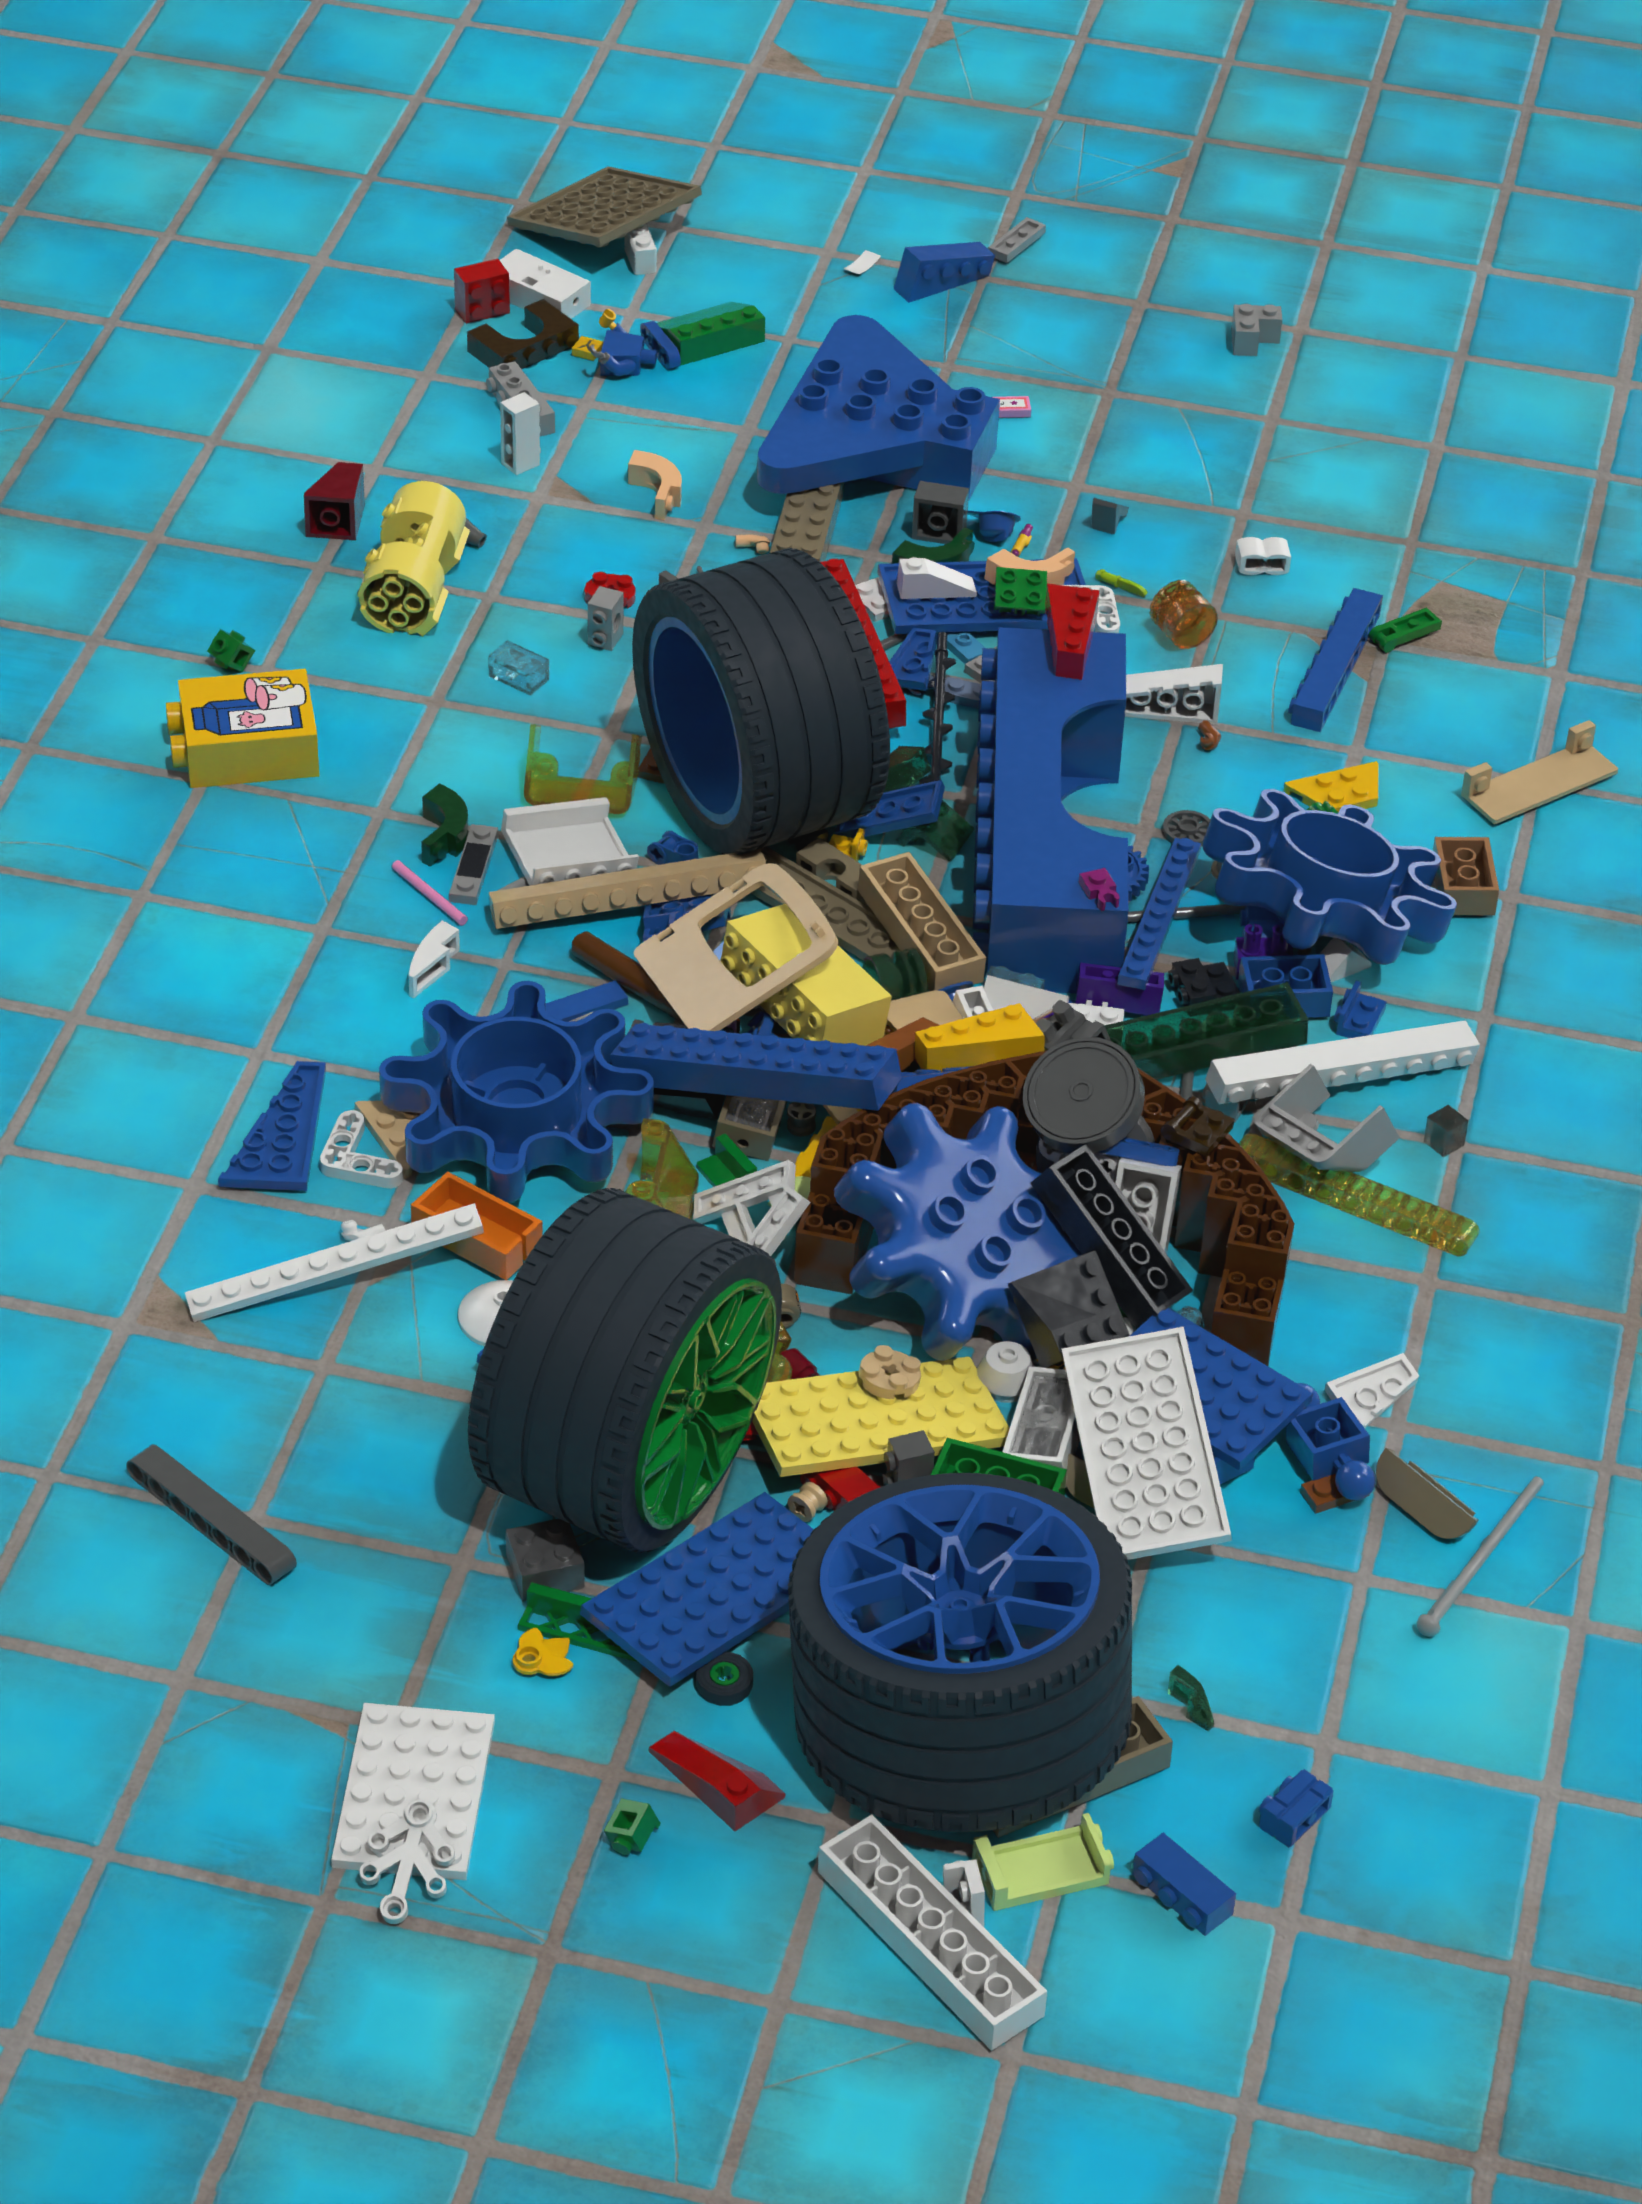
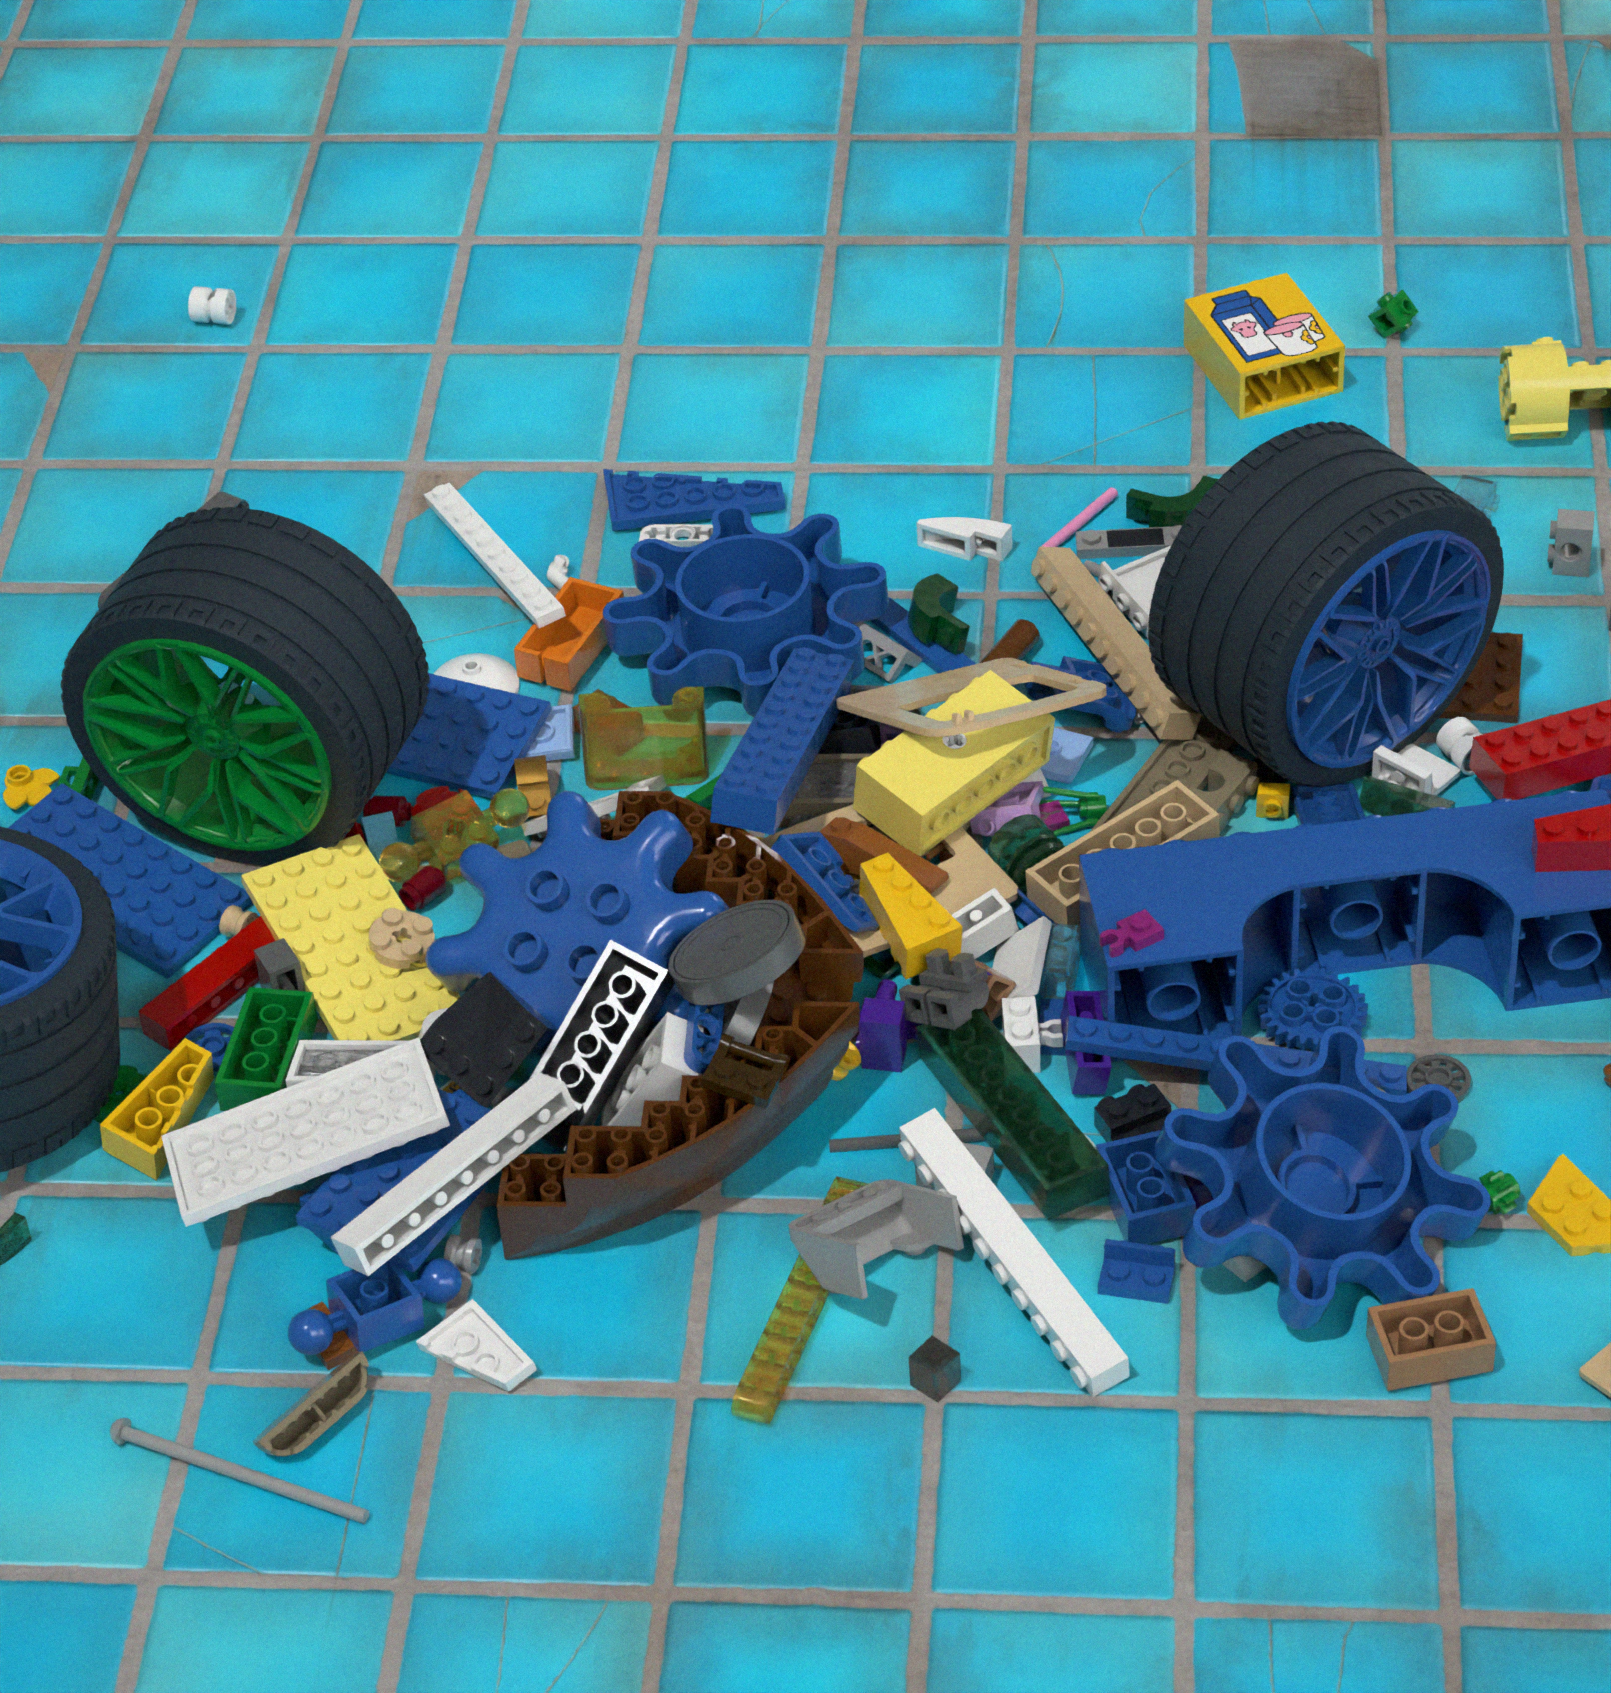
camera: 85 degrees right, 0 degrees up
(560, 989) = (931, 617): none -> dark green arch
(1244, 1336) = (453, 1174): none -> white brick

